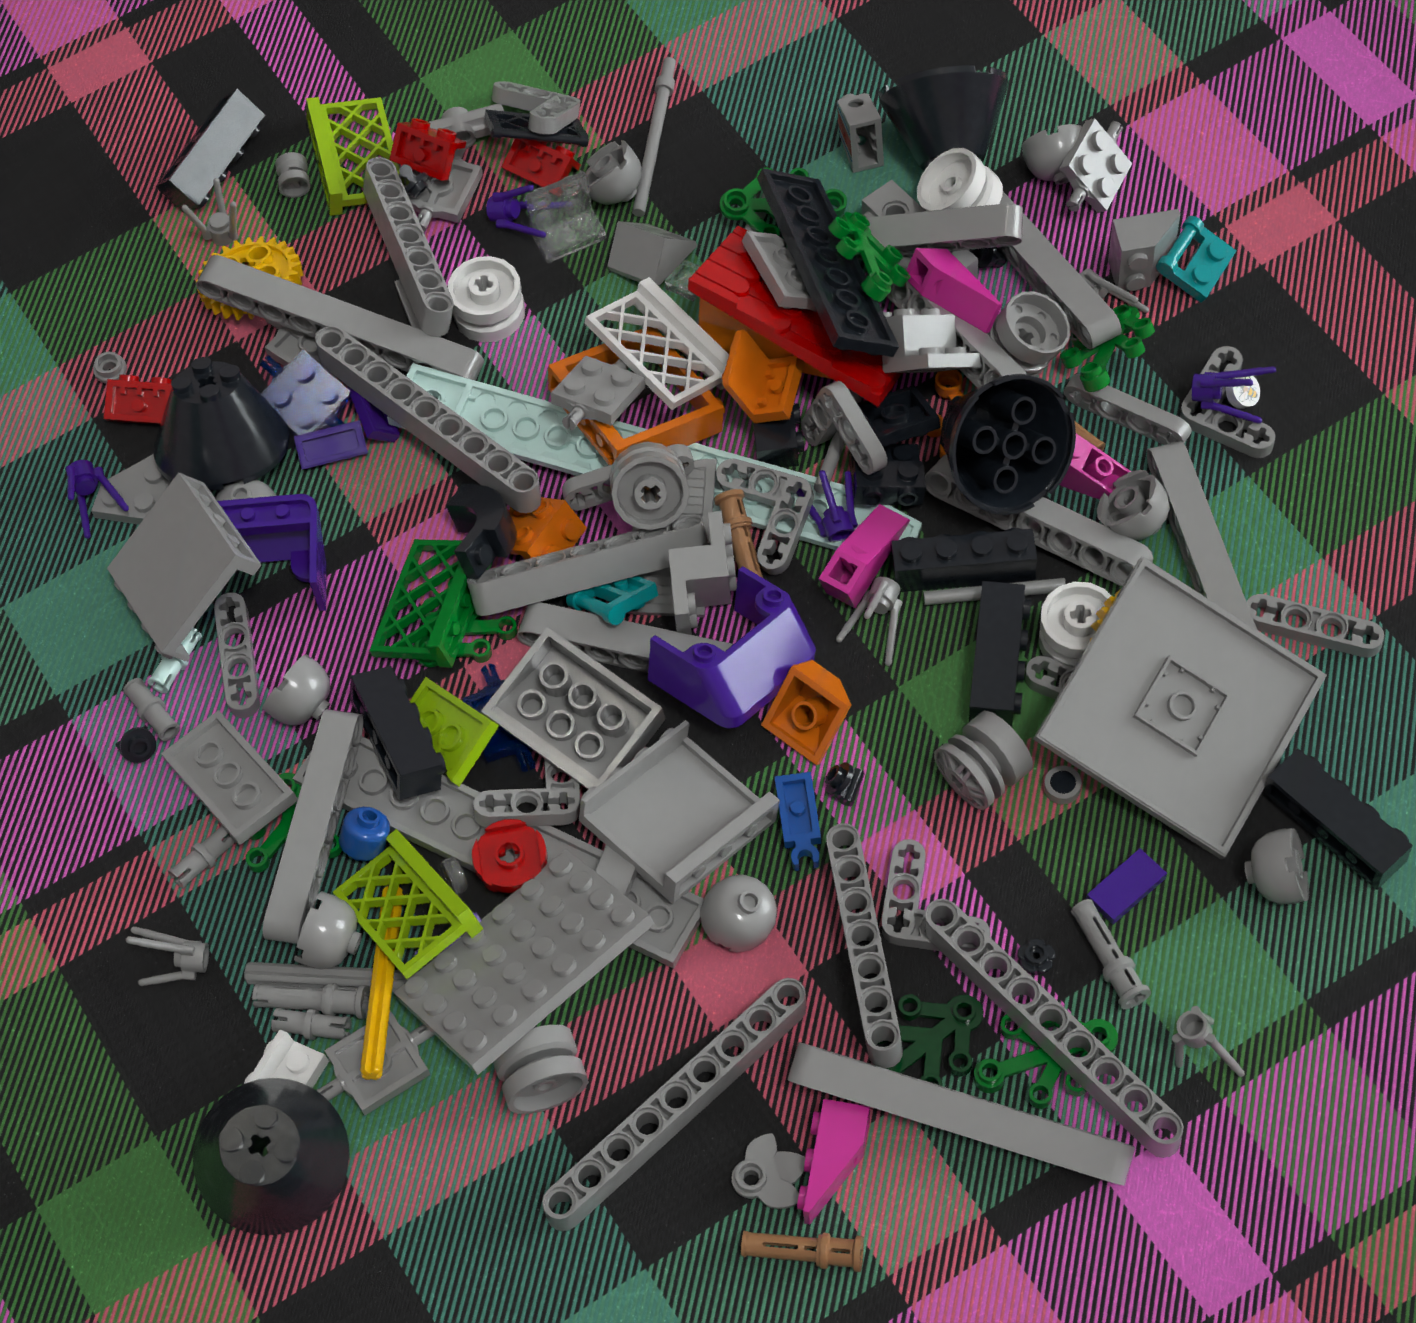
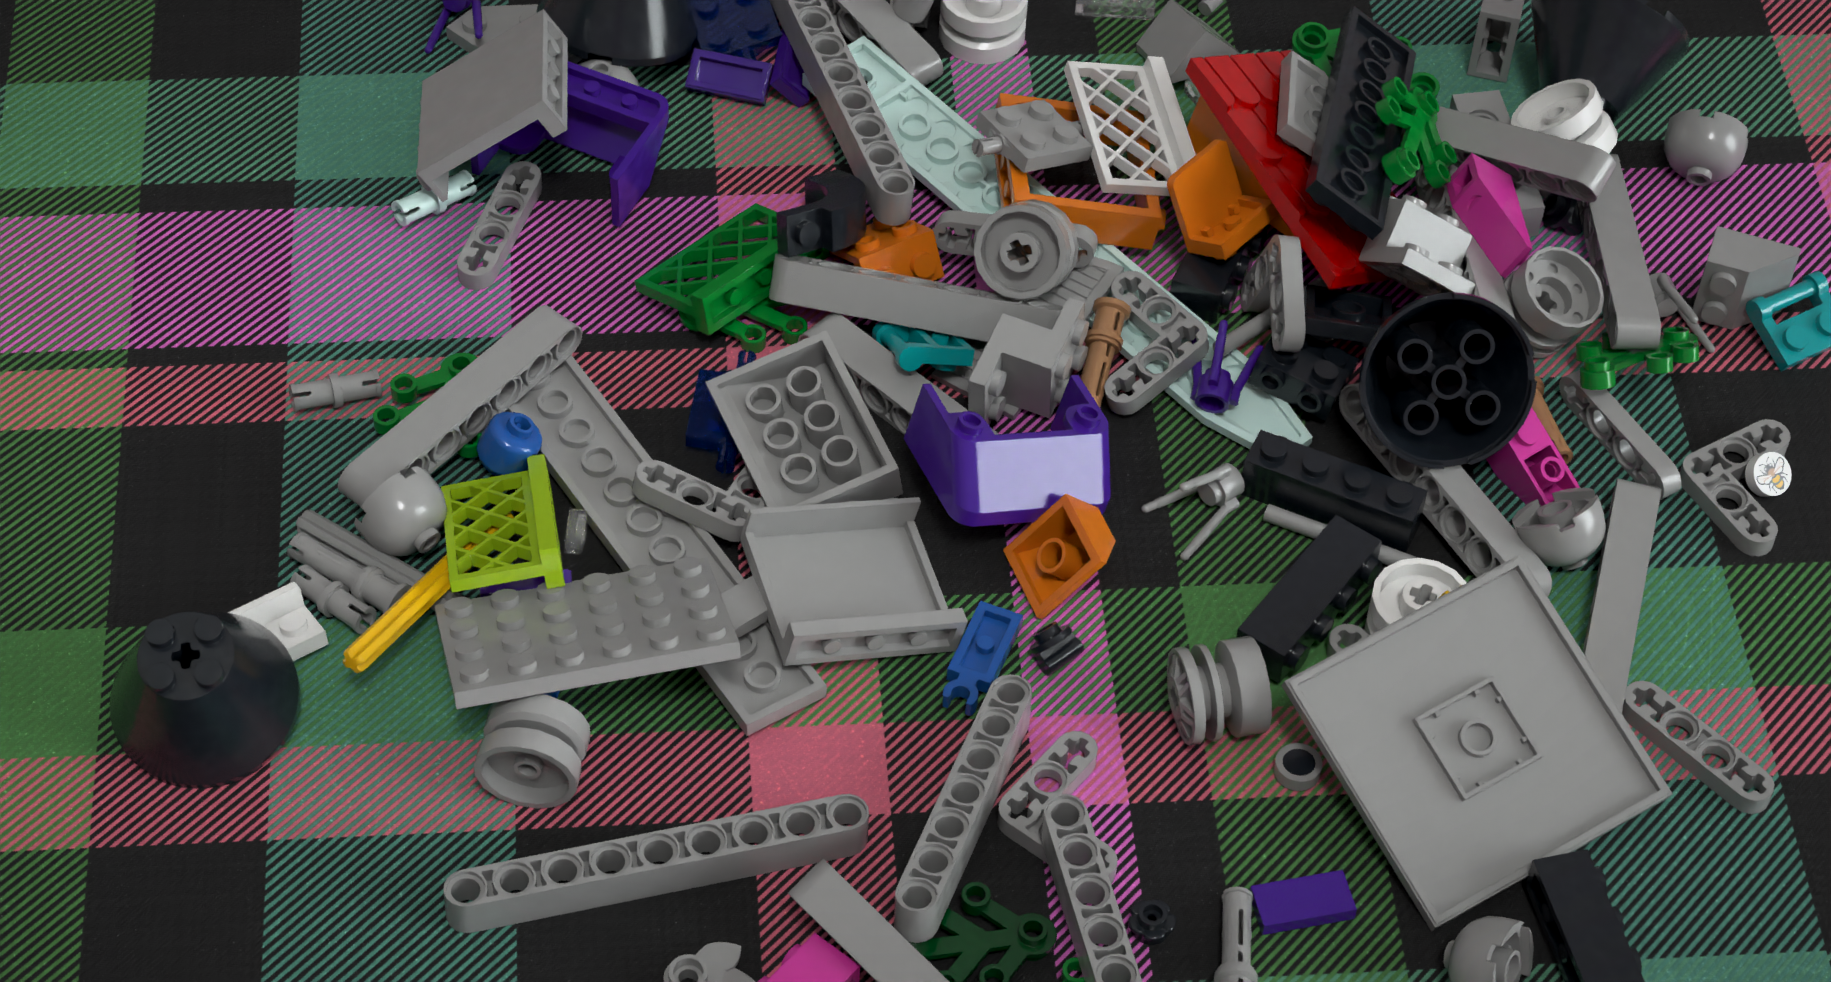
camera: 20 degrees right, 10 degrees down
(137, 744) = (341, 257): black plate -> none
(151, 709) = (378, 232): light grey pin -> none
(188, 954) = (253, 473): light grey plant -> none
(229, 777) = (409, 327): light grey plate -> none
(300, 693) = (537, 280): light grey cylinder -> none
(396, 732) = (607, 365): black brick -> none
(400, 1068) = (387, 684): light grey plate -> none
(455, 728) = (668, 390): lime wing -> none
(493, 844) = (646, 512): red plate -> none
(739, 913) = (850, 712): light grey cylinder -> none
(862, 555) = (1218, 432): dark pink slope -> none
(1095, 166) = (1741, 177): light grey plate -> none
(1209, 387) = (1728, 448): dark purple plant -> none

